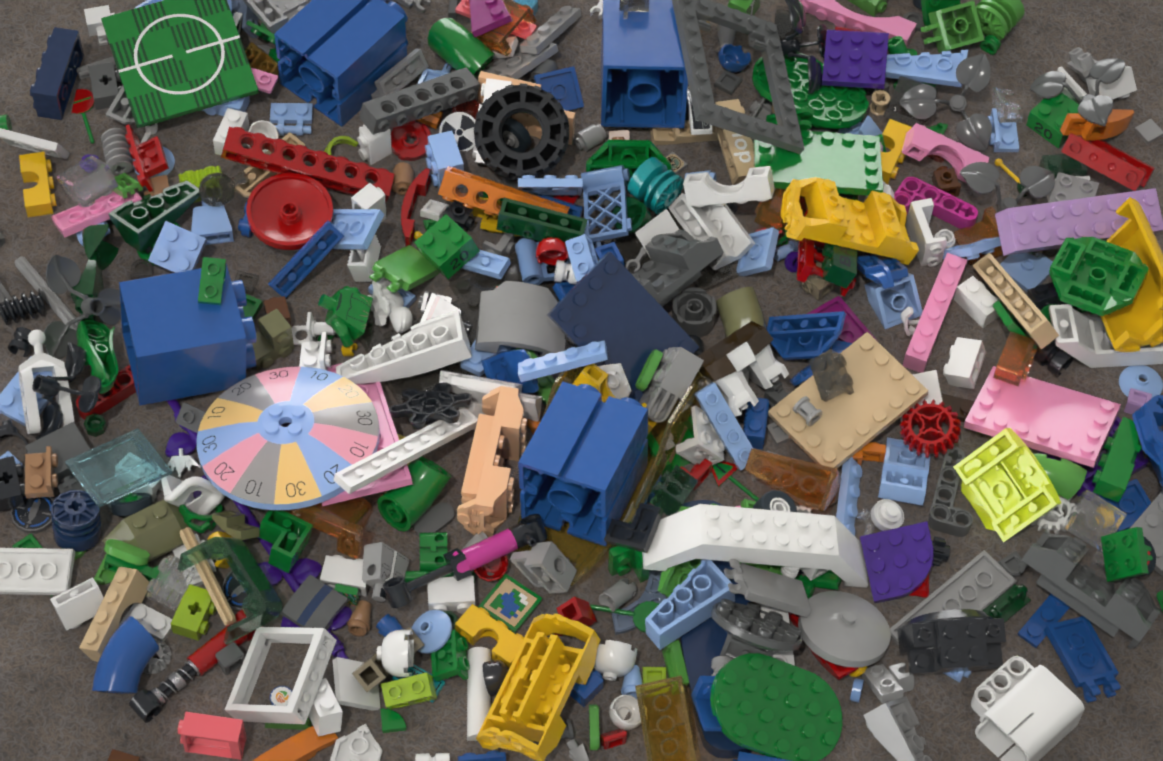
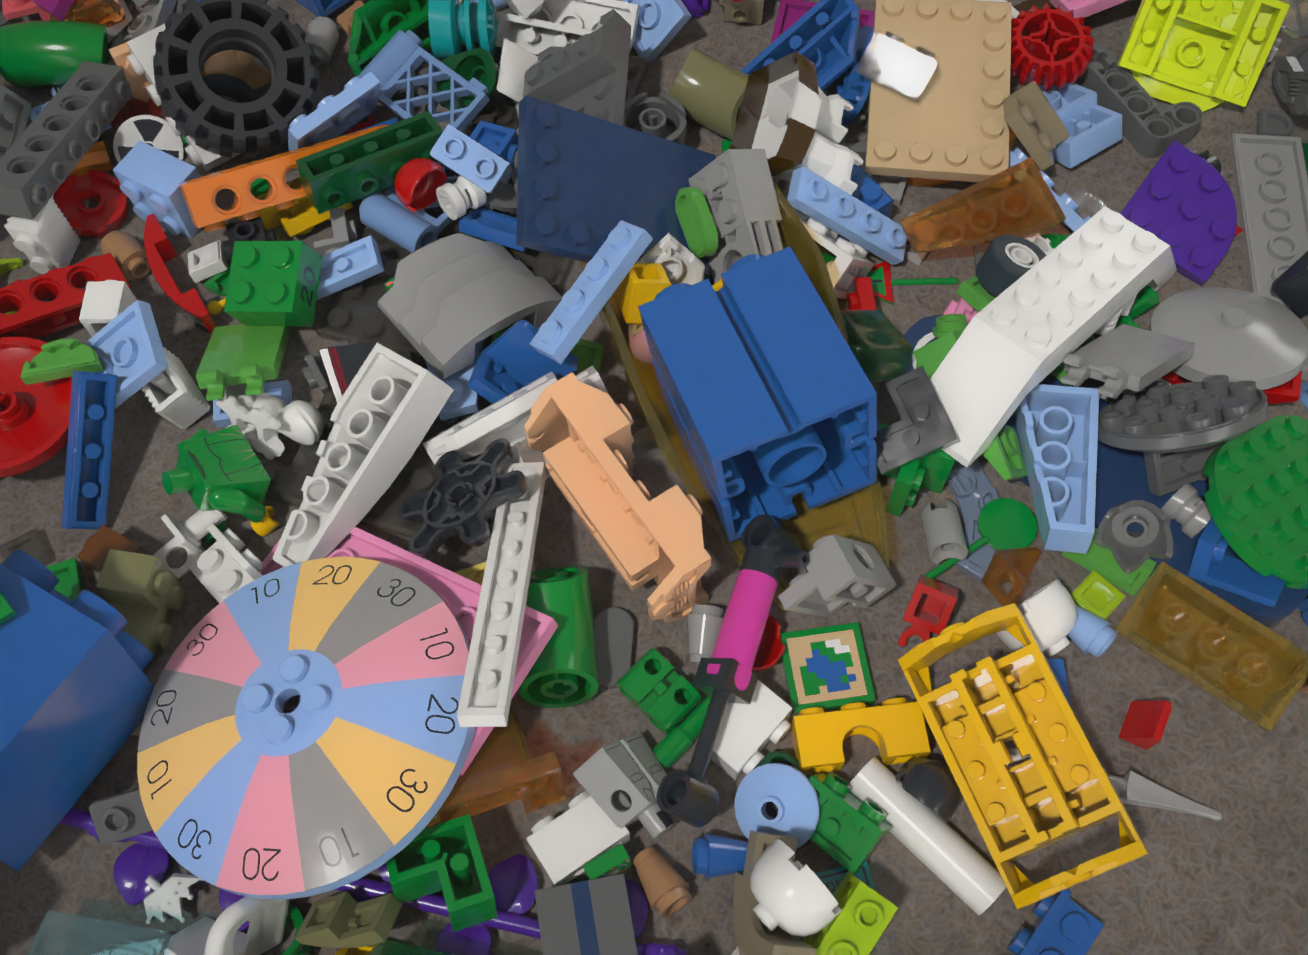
camera: 40 degrees left, 5 degrees up
(328, 210) = (60, 360): none -> bright green tile
(594, 739) = (1113, 733): bright green tile -> none
(619, 709) = (1142, 676): white hair -> none
(627, 631) = (1010, 567): none -> clear orange bracket
(687, 656) = (1134, 548): none -> dark grey piece
(807, 411) = (918, 125): light grey bush -> none
(866, 458) = (1035, 123): none -> dark tan bracket
(887, 515) = (1105, 177): white plate -> none

